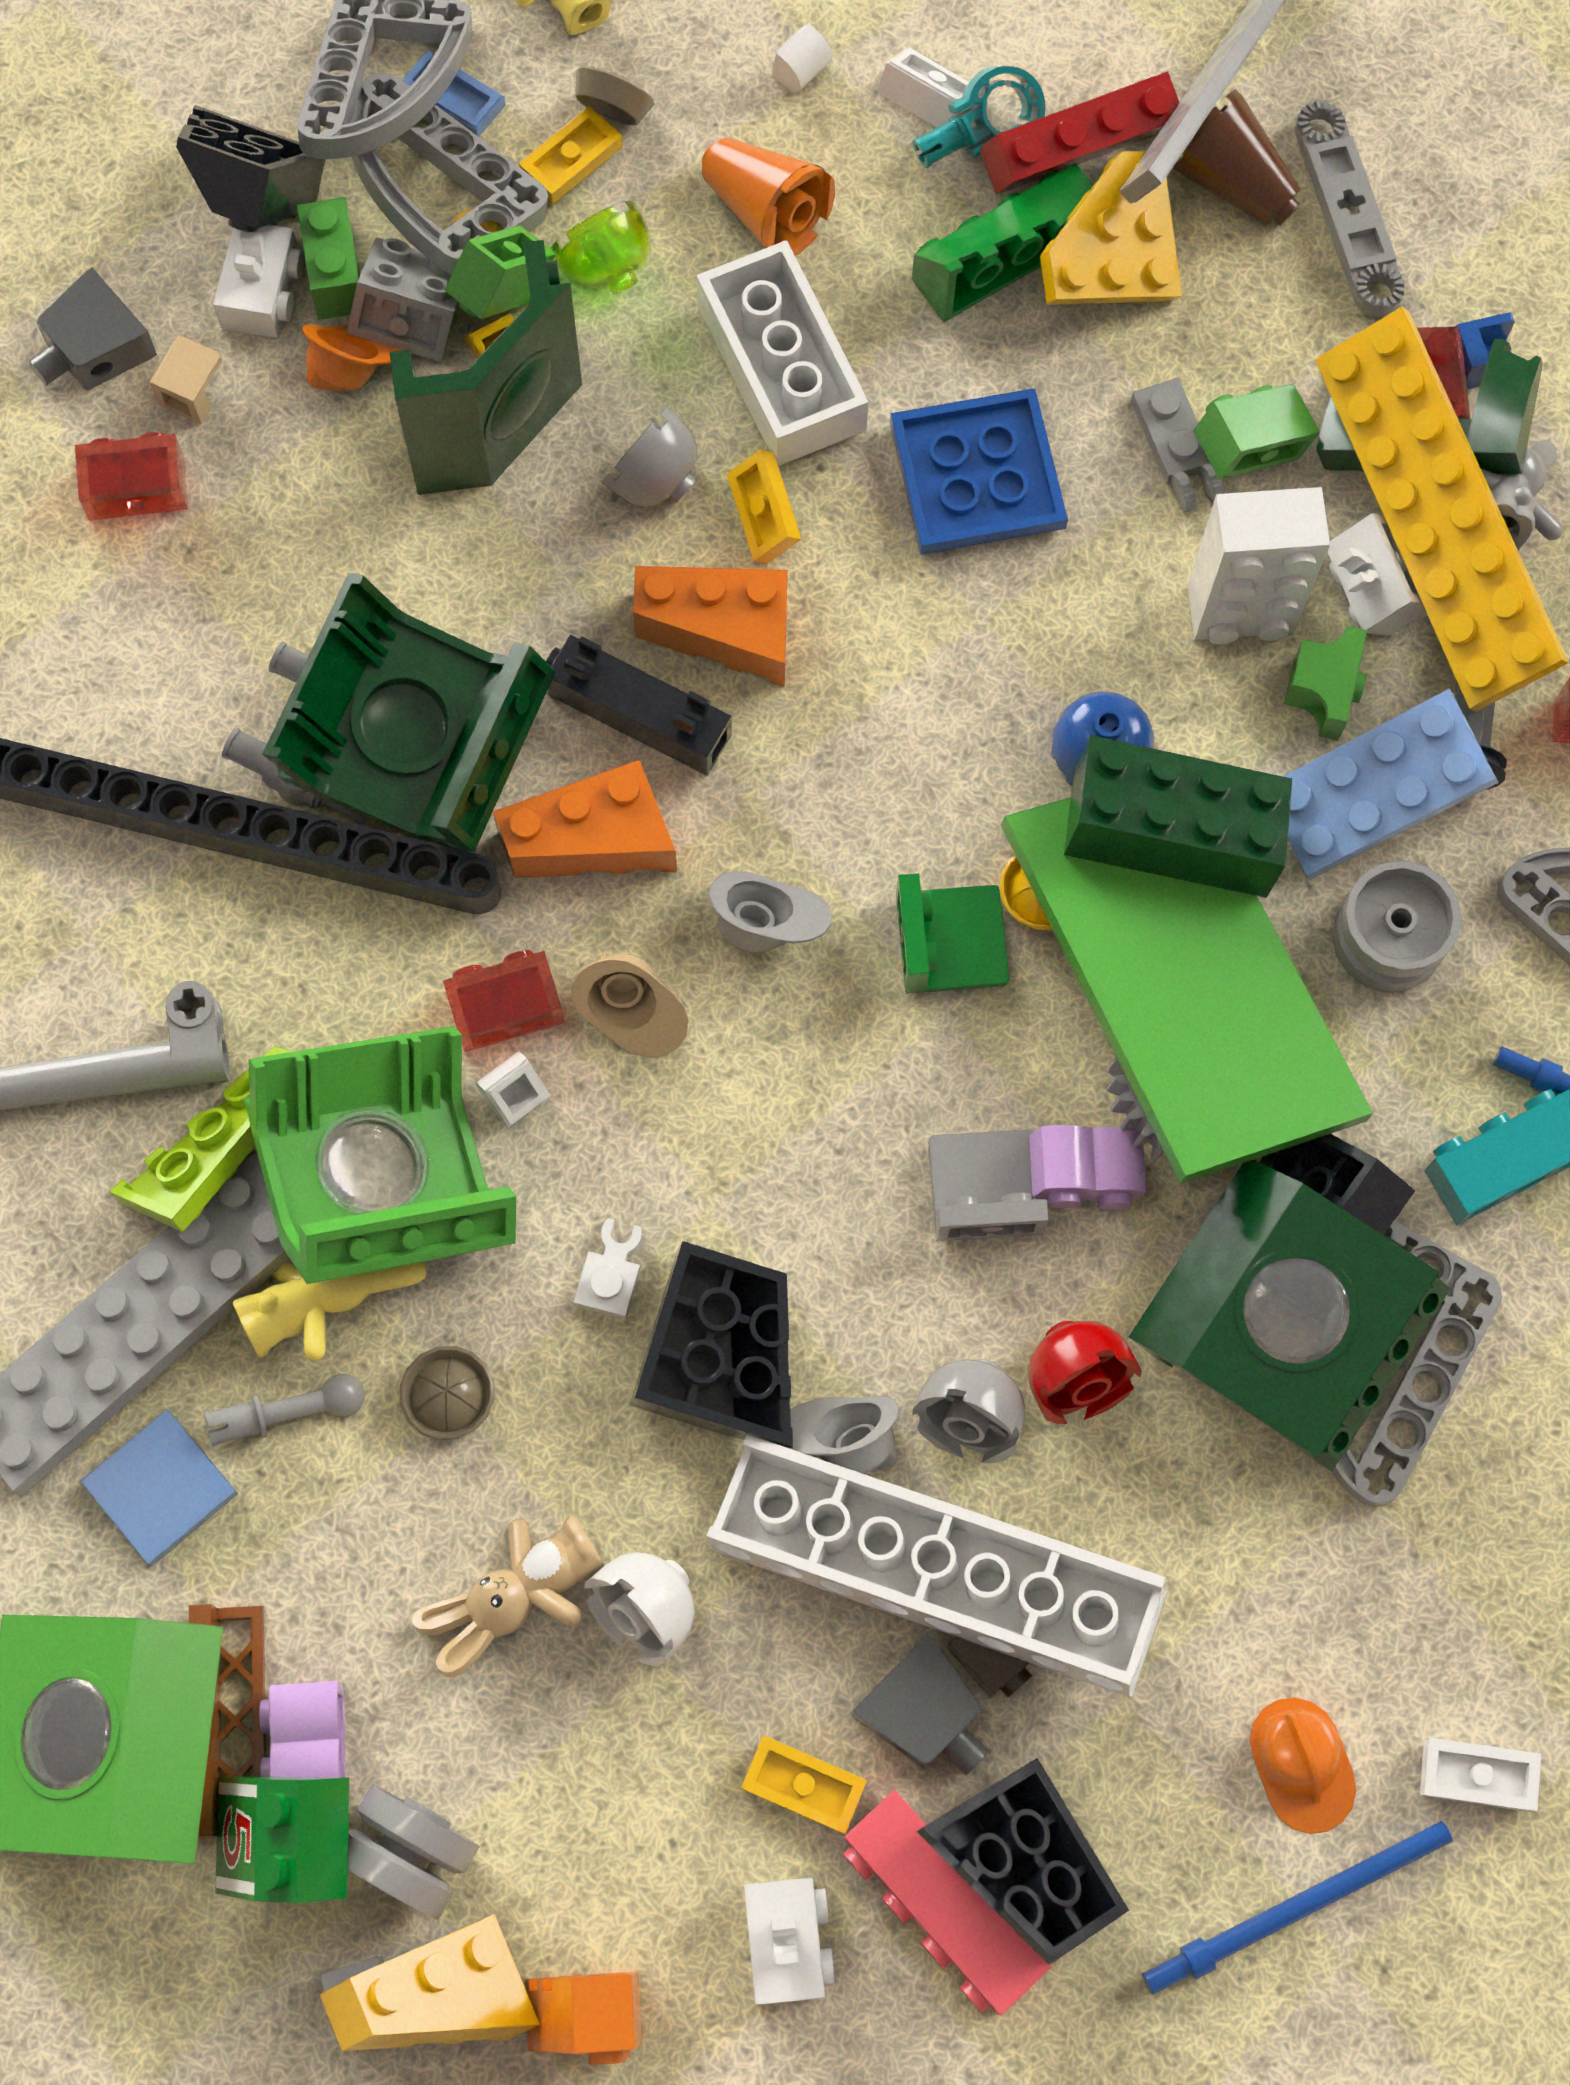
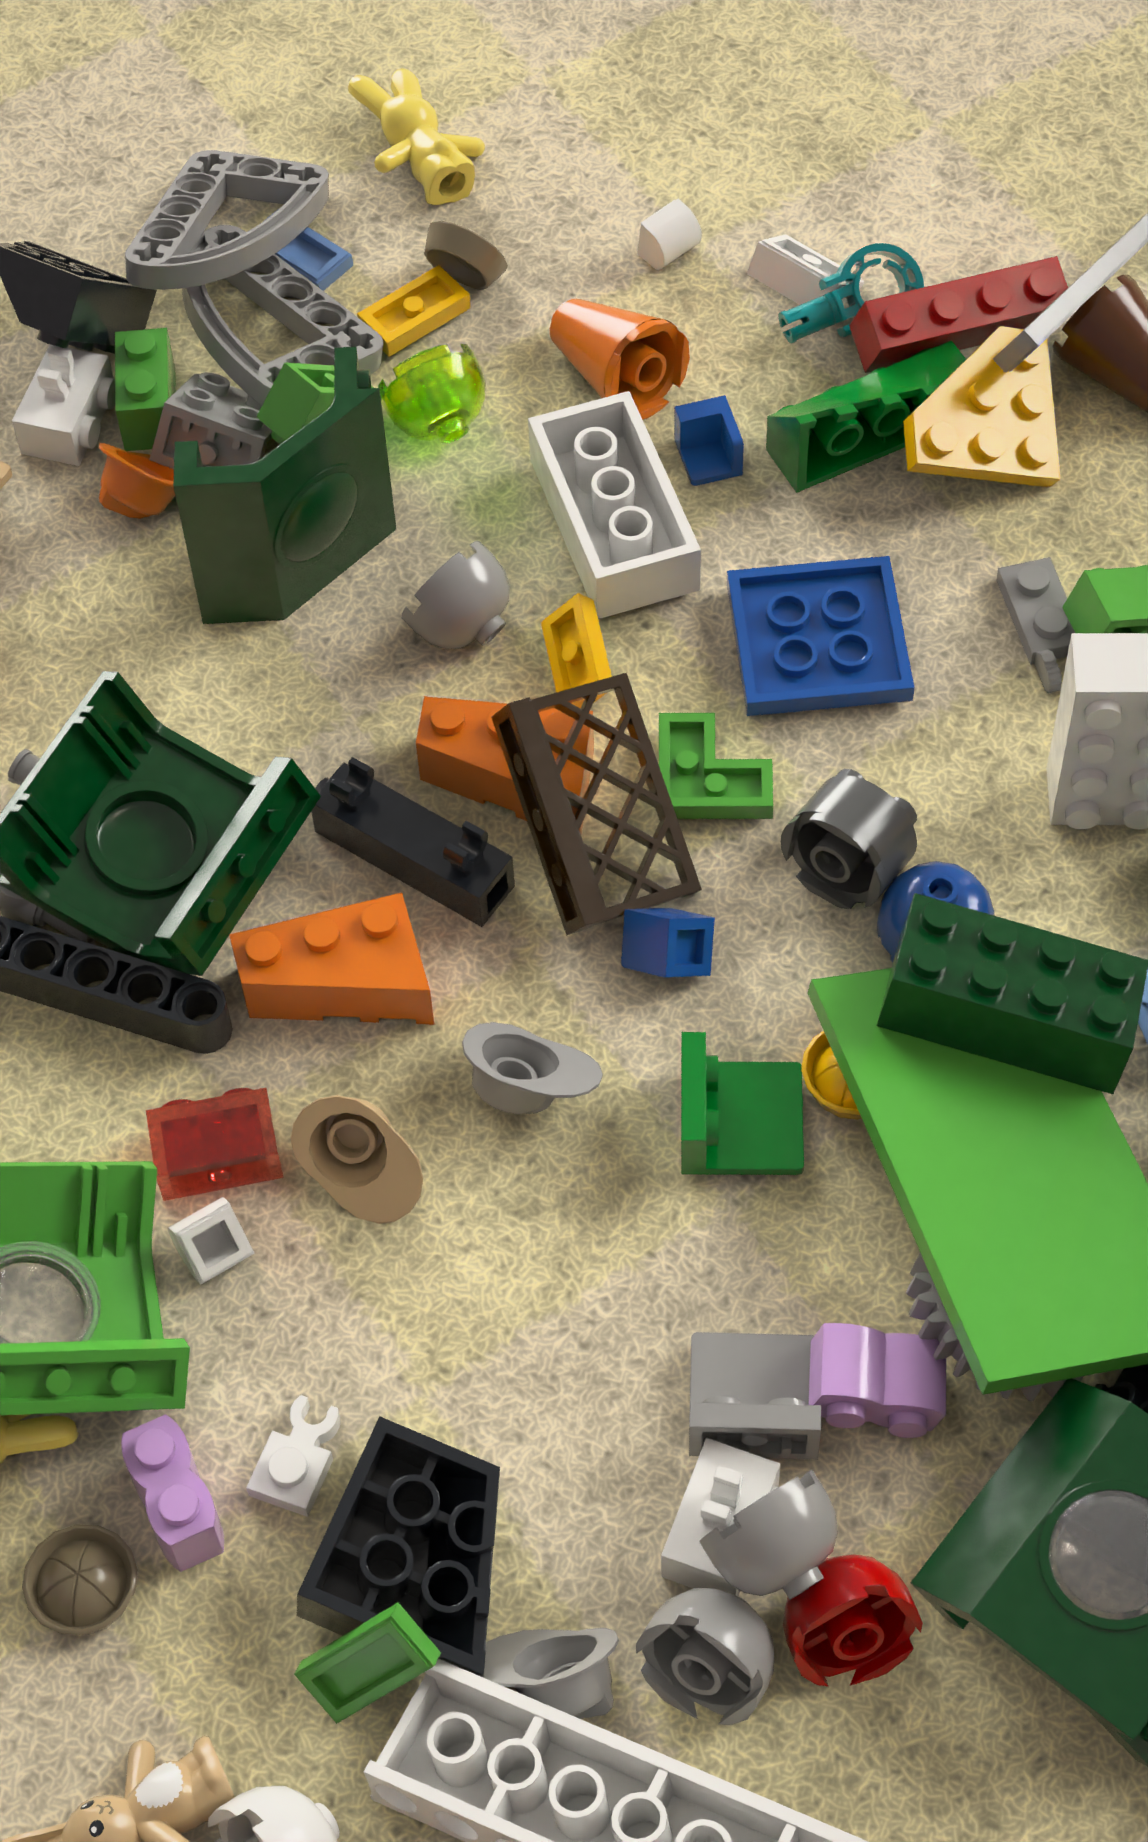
camera: 10 degrees right, 15 degrees down
(519, 1321) = (173, 1493): none -> lavender brick
(697, 1445) = (367, 1663): none -> bright green tile
(760, 670) = (550, 811): none -> dark brown fence
(860, 278) = (708, 440): none -> blue panel
(873, 782) = (667, 942): none -> blue panel
(888, 628) = (705, 785): none -> bright green plate
(971, 1295) = (719, 1488): none -> white brick
(1022, 1321) = (777, 1540): none -> light grey cylinder
(1025, 676) = (850, 840): none -> dark grey brick

